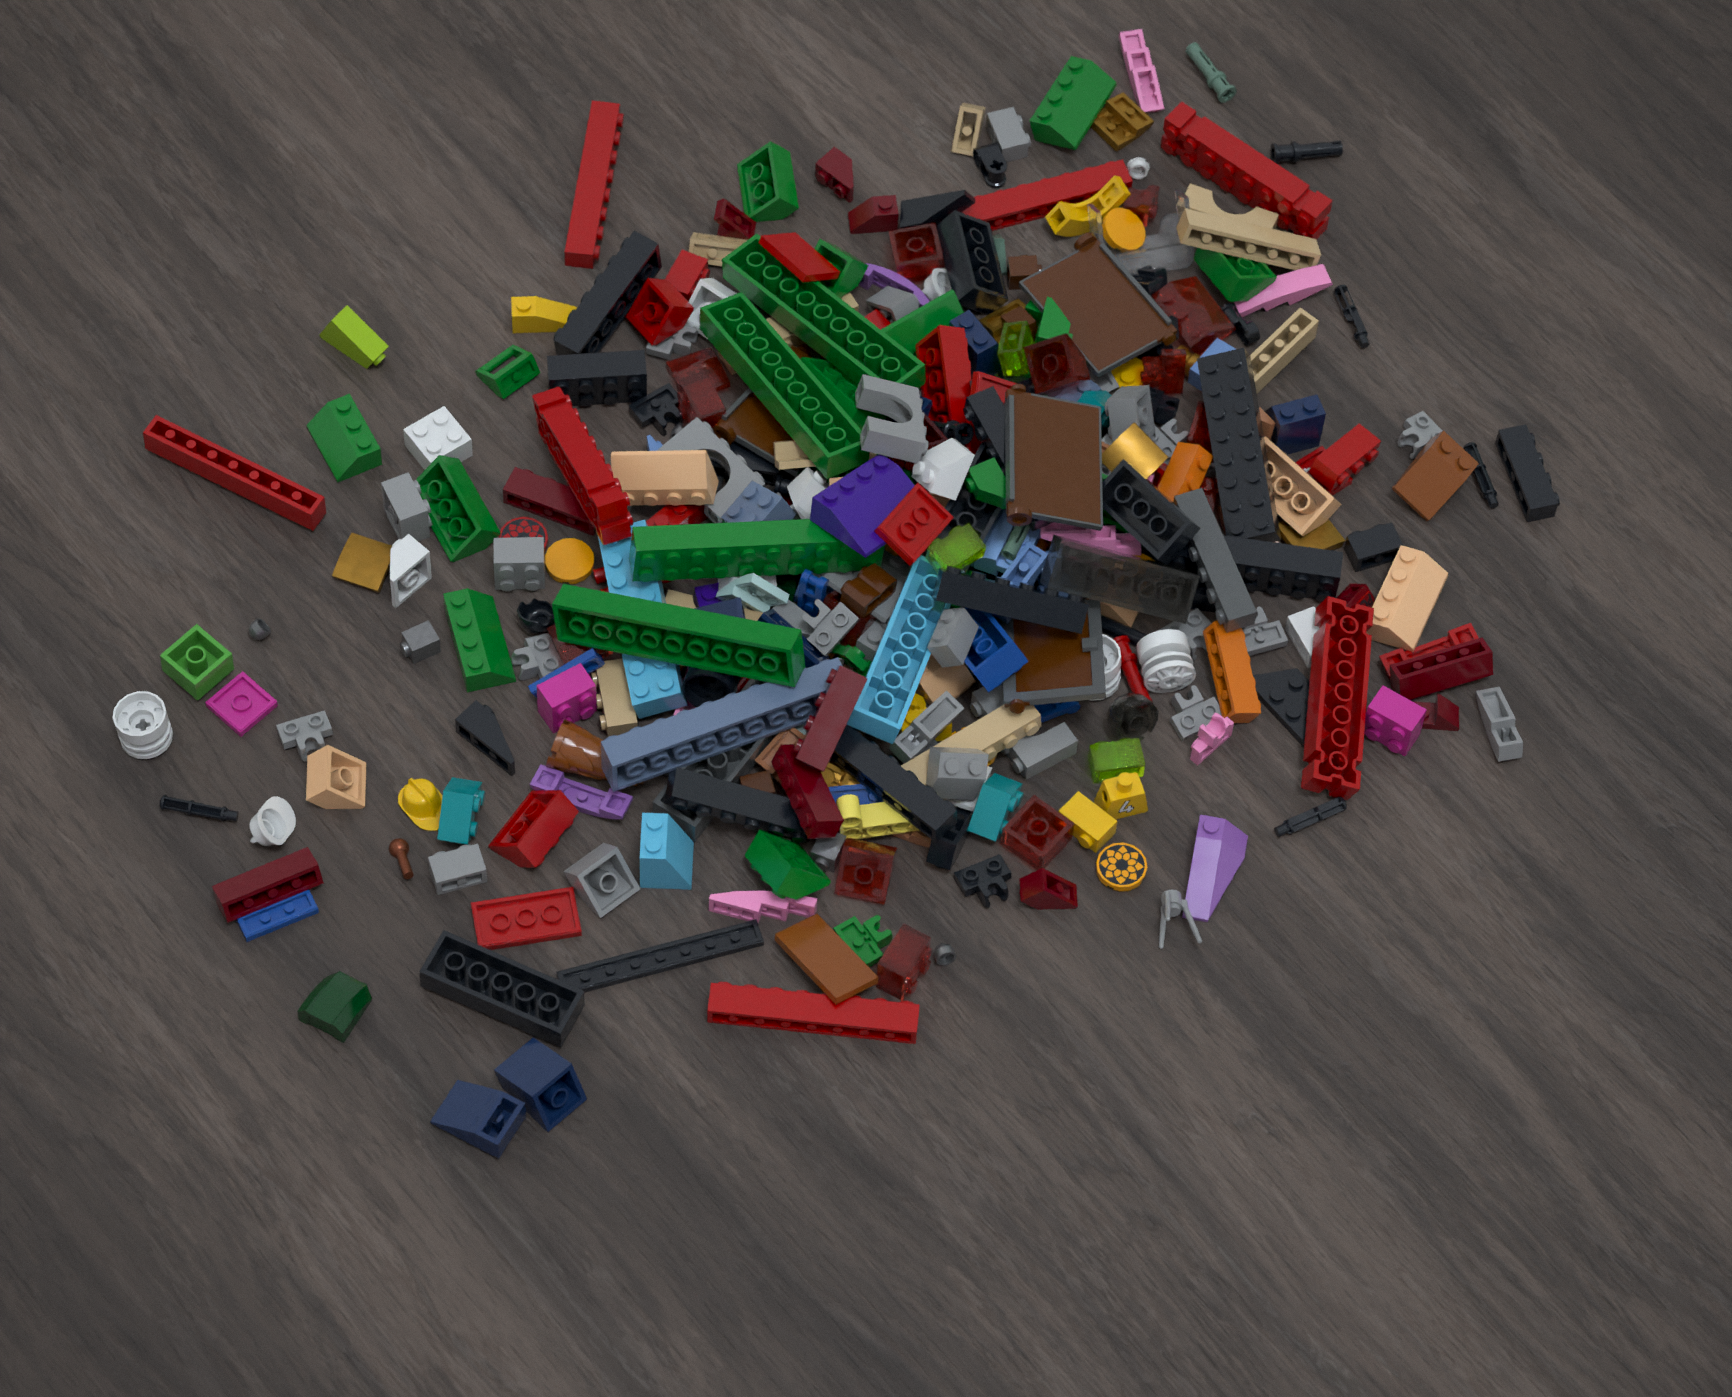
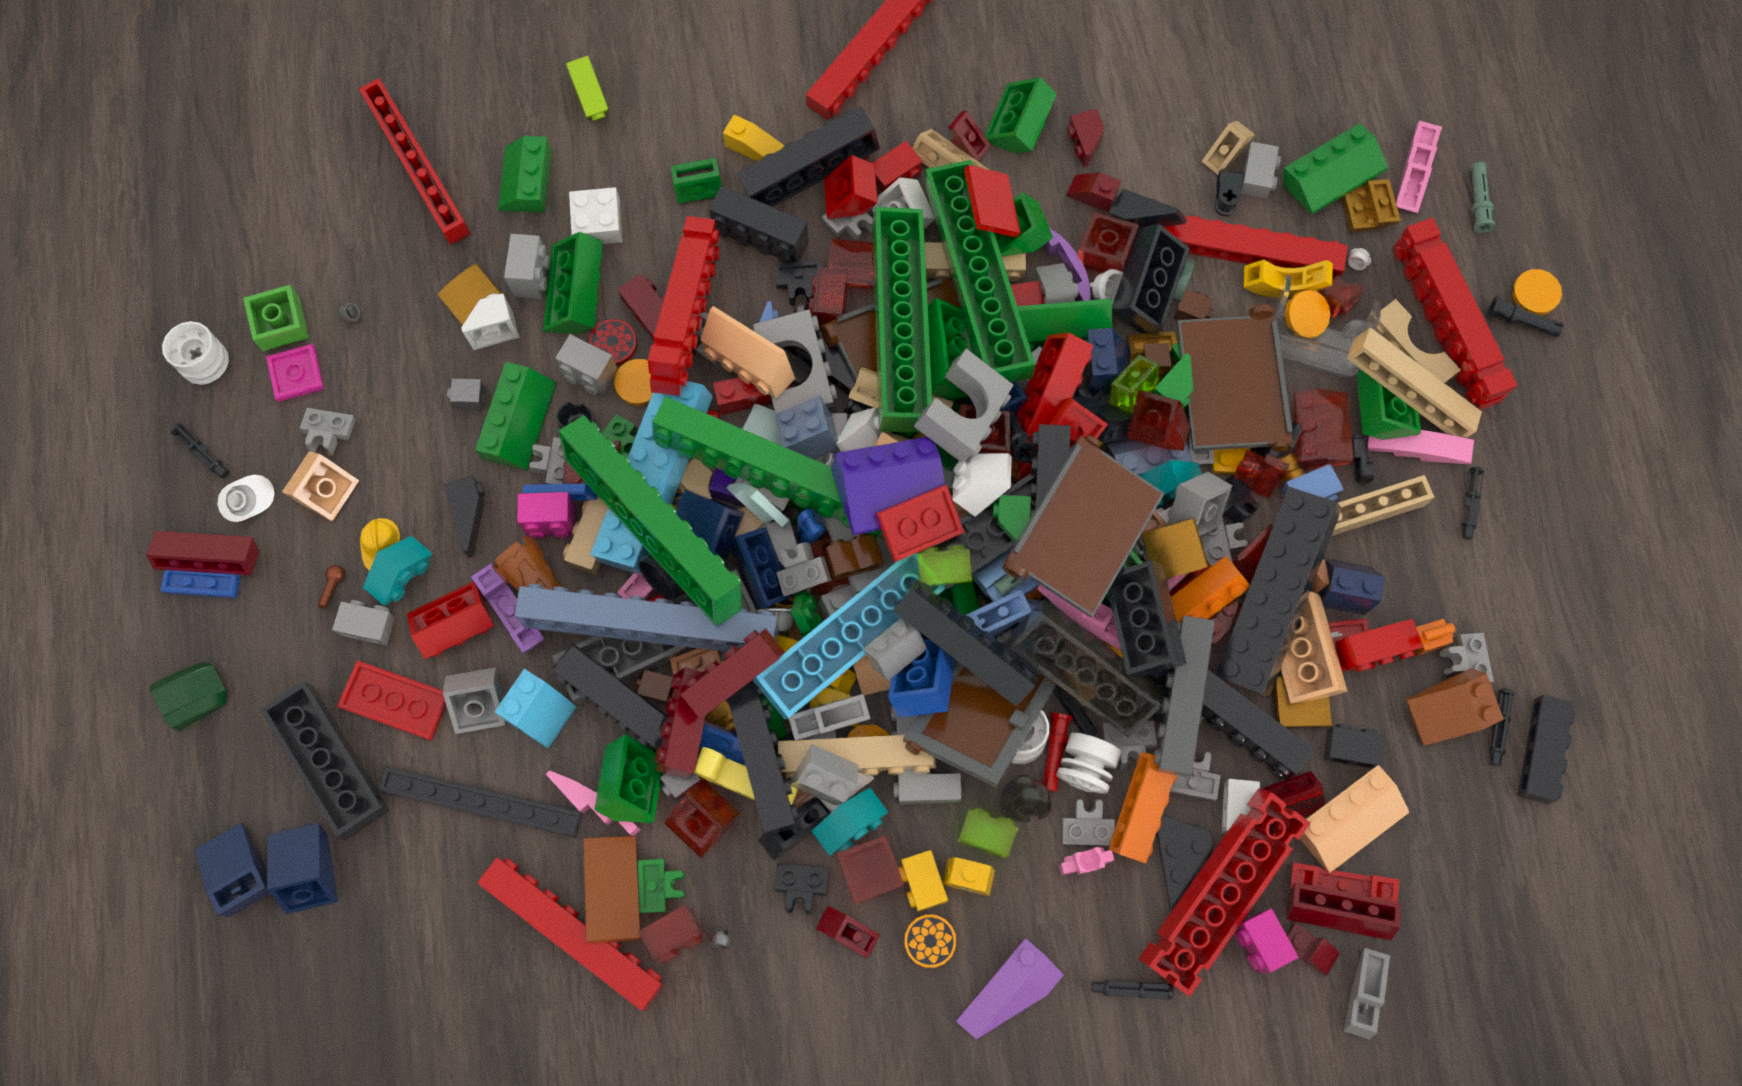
camera: 35 degrees right, 15 degrees up
(1151, 278) = (1300, 375): black plate -> none
(1171, 907) = (948, 1009): light grey plant -> none
(1303, 125) = (1537, 291): none -> light orange tile
(1386, 429) = (1435, 636): none -> orange brick

